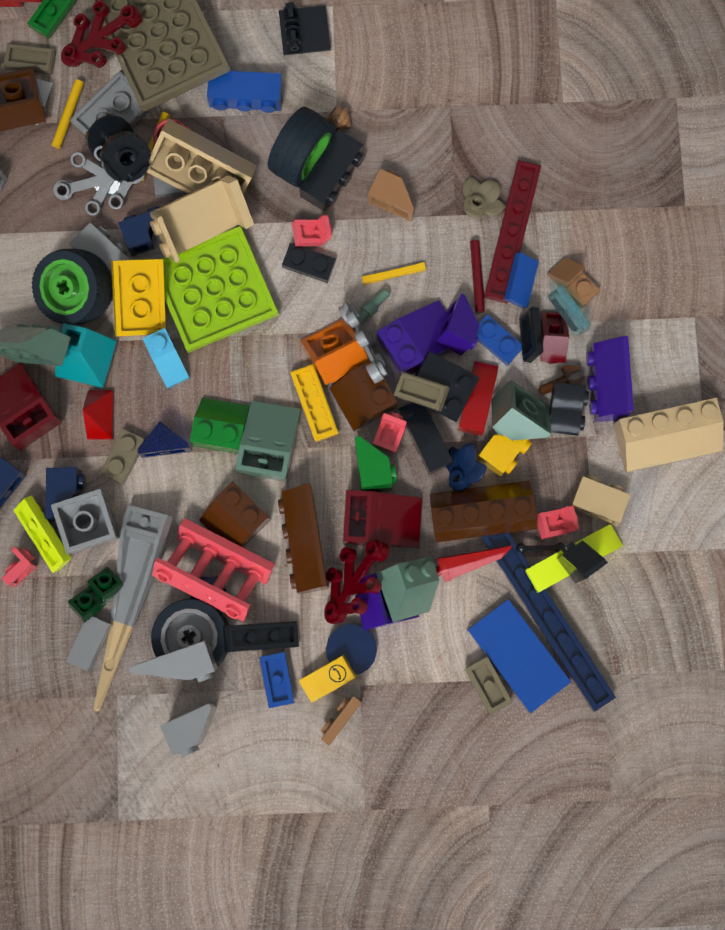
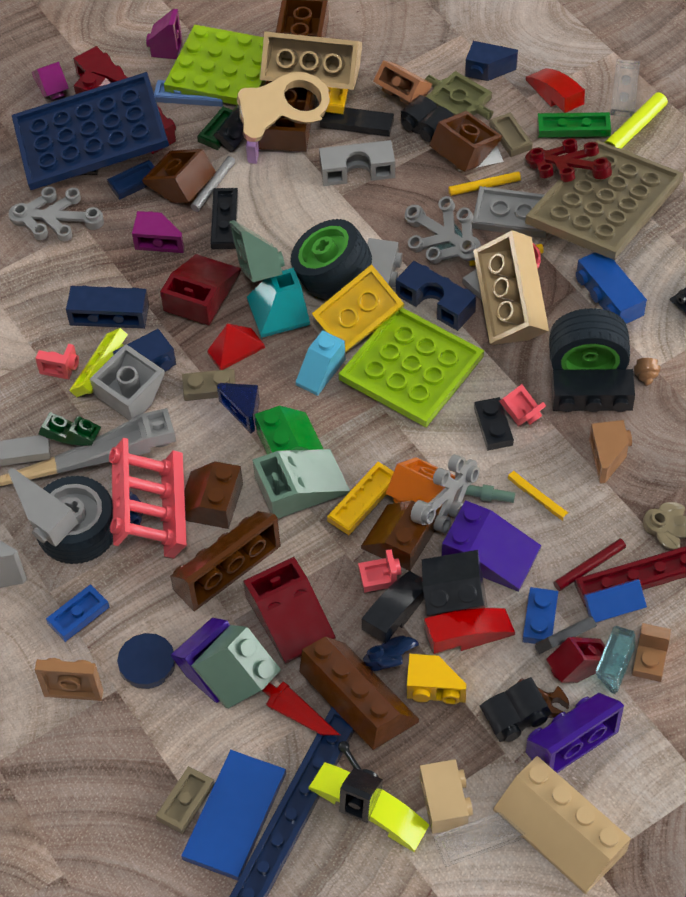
camera: 60 degrees right, 25 degrees down
(123, 152) = (476, 220): black piece -> none
(200, 216) = (462, 309): tan panel -> none
(260, 636) = (109, 571): black tile -> none
(327, 678) = (105, 652): yellow tile -> none
(336, 608) = (212, 615): dark red plant -> none
(374, 467) = (330, 570): green slope -> none
(421, 391) = (433, 564): dark tan tile -> none
(459, 327) = (523, 569): dark purple slope -> none
(520, 414) = (476, 664): sand green slope -> none
(557, 522) = (393, 768): coral bracket -> none

